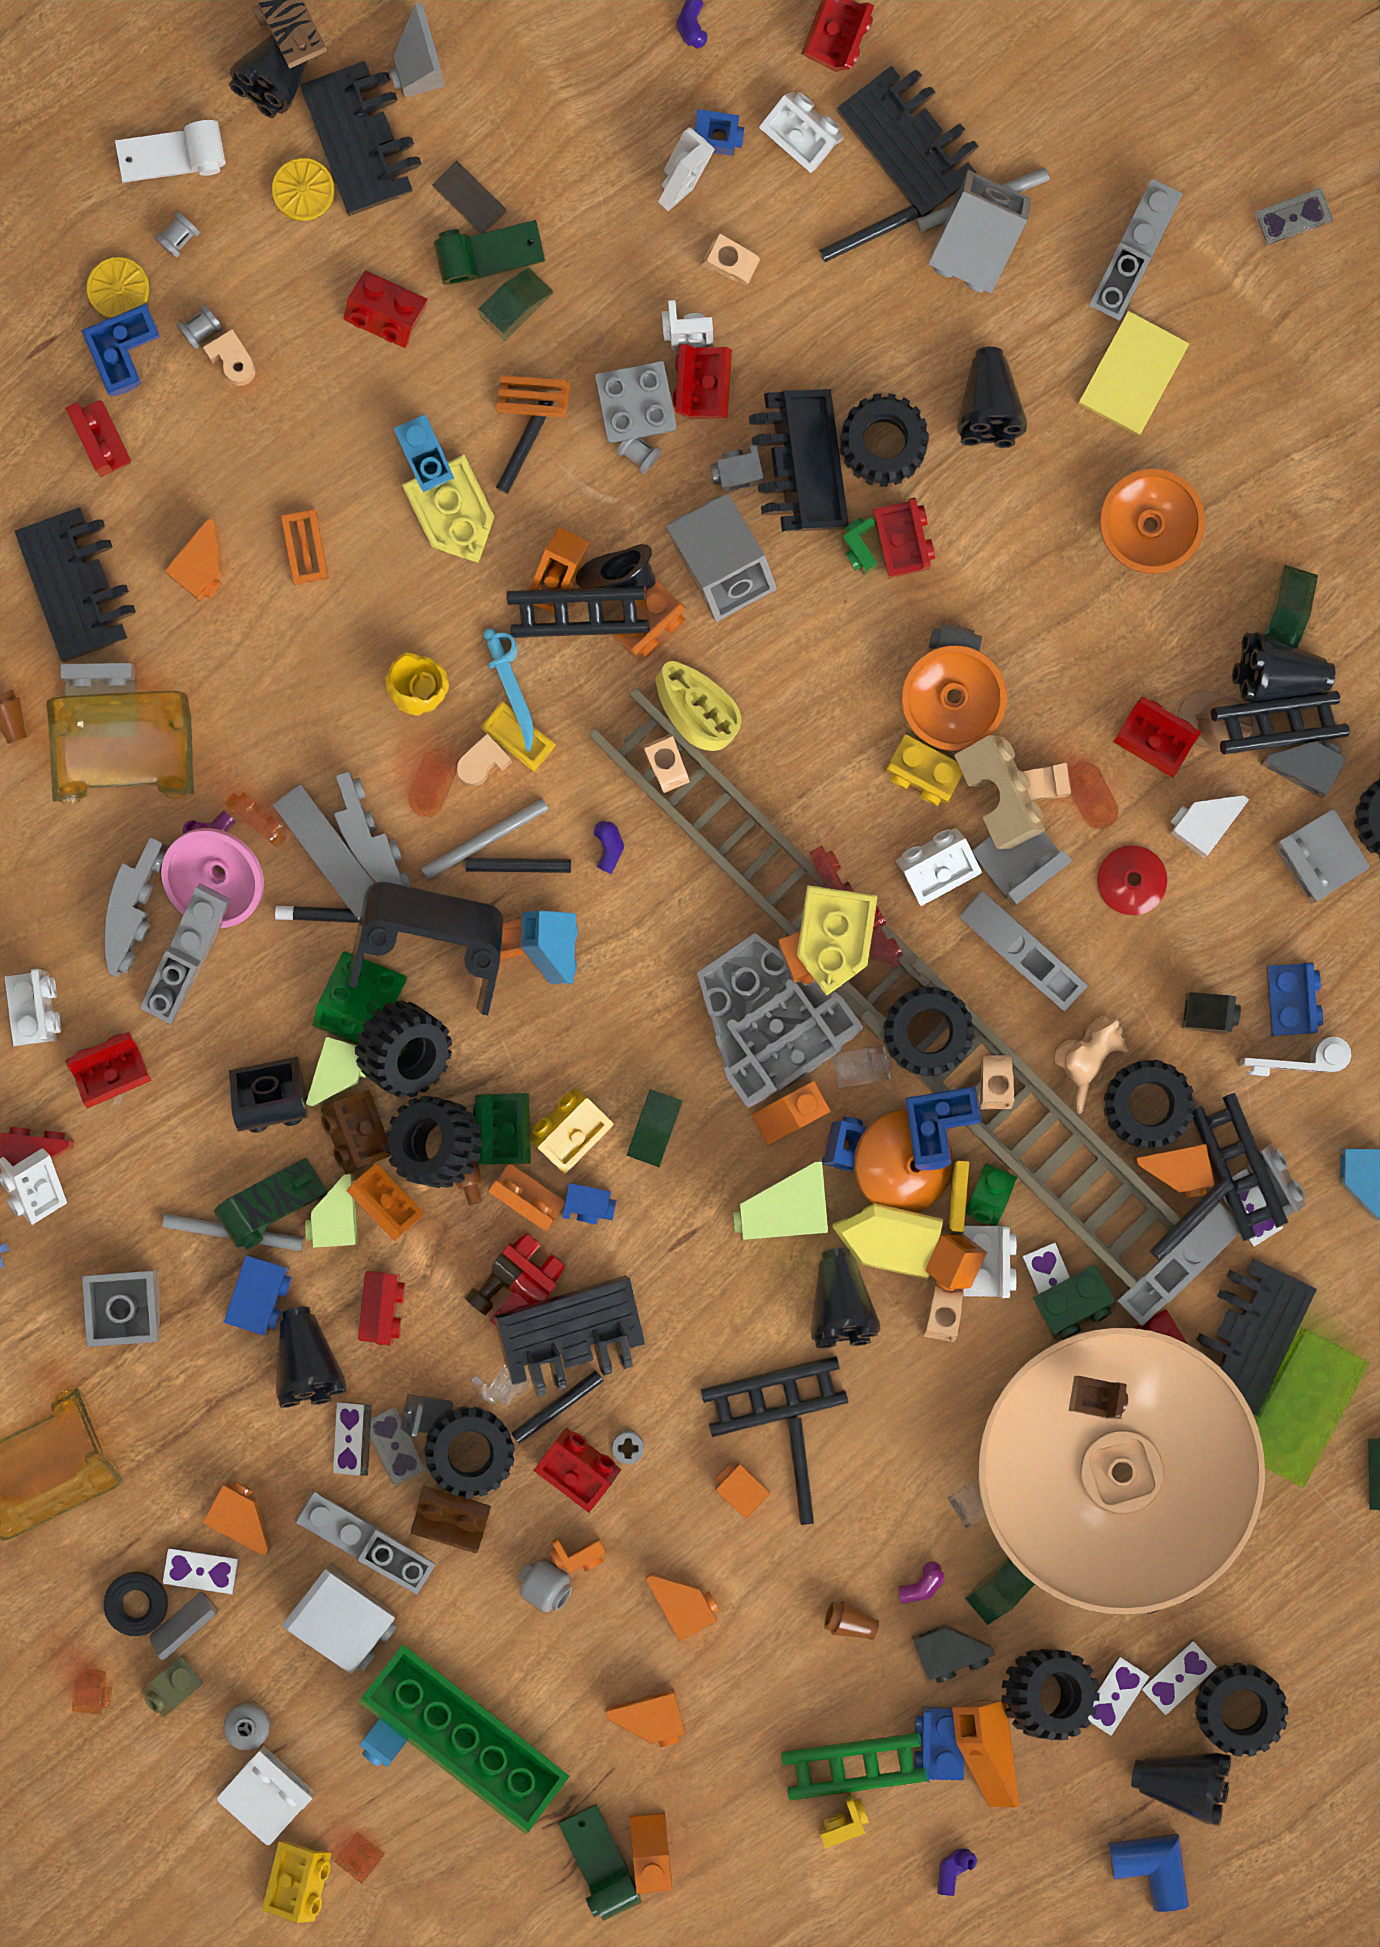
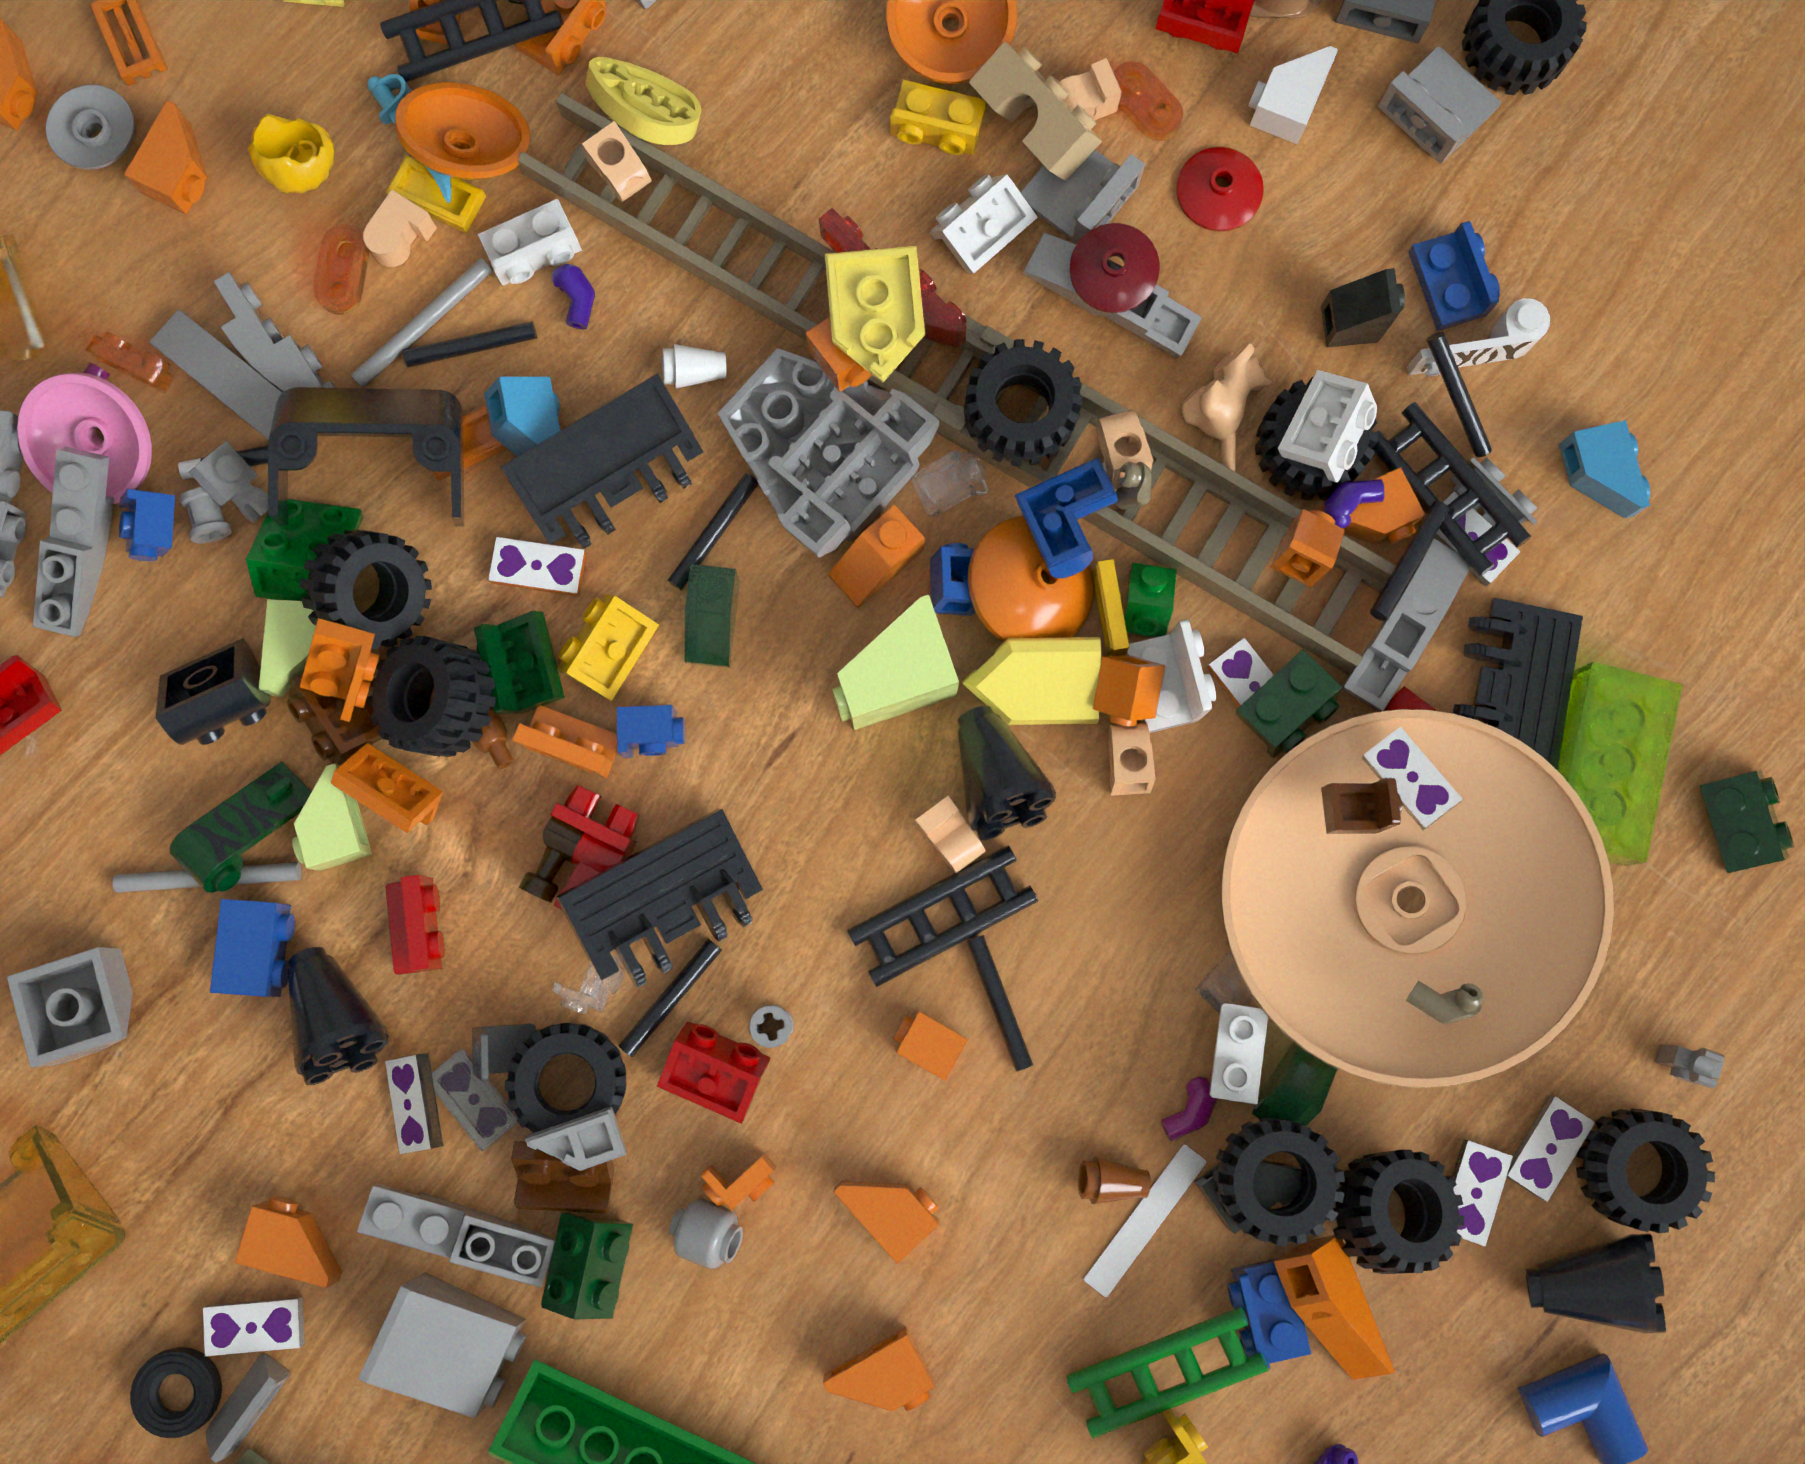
camera: 15 degrees left, 5 degrees down
(245, 953) = (147, 524): none -> blue brick
(251, 606) = (79, 115): none -> light grey dish
(289, 954) = (205, 516): none -> light grey bush
(313, 934) = (229, 477): none -> light grey plate
(319, 665) = (169, 162): none -> orange slope
(374, 1105) = (339, 663): none -> orange bracket
(453, 1587) = (586, 1267): none -> dark green bracket
(474, 1498) = (583, 1140): none -> light grey tile
(531, 1054) = (537, 566): none -> tile
(561, 688) = (461, 130): none -> orange dish
(583, 795) = (530, 243): none -> white bracket
(601, 988) = (601, 457): none -> black hinge
(671, 1060) = (714, 530): none -> black bar
(685, 926) = (691, 365): none -> white cone
(795, 1338) = (950, 834): none -> light nougat leg
(868, 1656) = (1145, 1221): none -> white sticker
(965, 1552) = (1238, 1053): none -> white bracket
(967, 1681) = (1318, 1188): none -> black tyre
(997, 1116) = (1136, 485): none -> dark tan arm
(1022, 918) = (1108, 288): none -> dark red dish
(1116, 1192) = (1309, 547): none -> orange slope
(1119, 1557) = (1449, 1006): none -> dark tan arm
(1142, 1385) = (1419, 783): none -> white tile
(1155, 1104) = (1329, 424): none -> white bracket
(1155, 1160) = (1349, 495): none -> dark purple arm
(1267, 1098) = (1459, 394): none -> black bar
(1298, 1643) = (1692, 1066): none -> light grey plate

